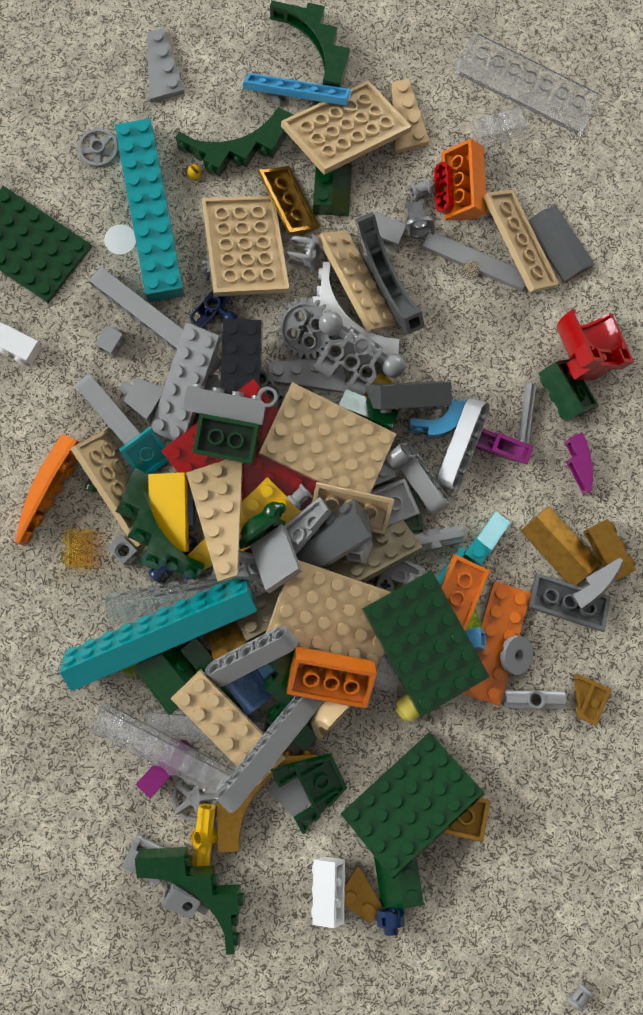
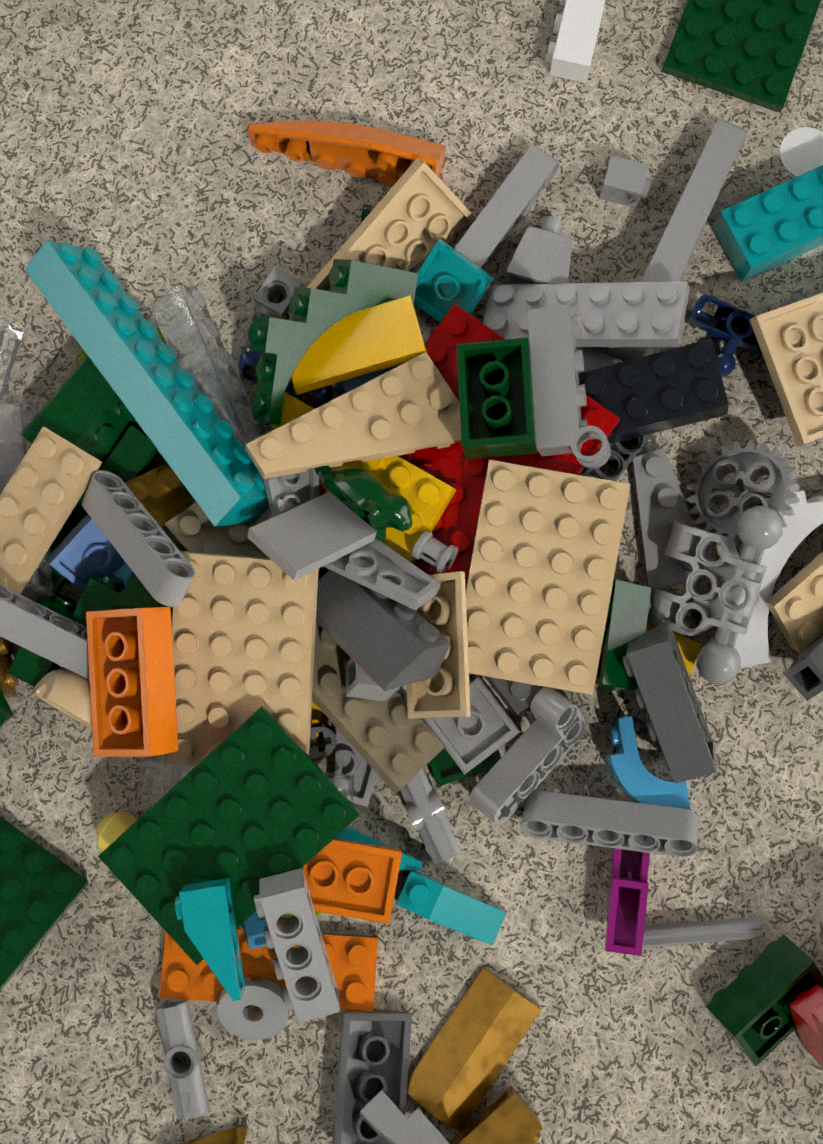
camera: 80 degrees right, 0 degrees up
(78, 548) = (266, 226): clear yellow bracket -> none
(473, 661) = (212, 928): none -> teal slope
(491, 618) = (290, 894): none -> light grey brick
(581, 462) = (637, 1054): magenta slope -> none

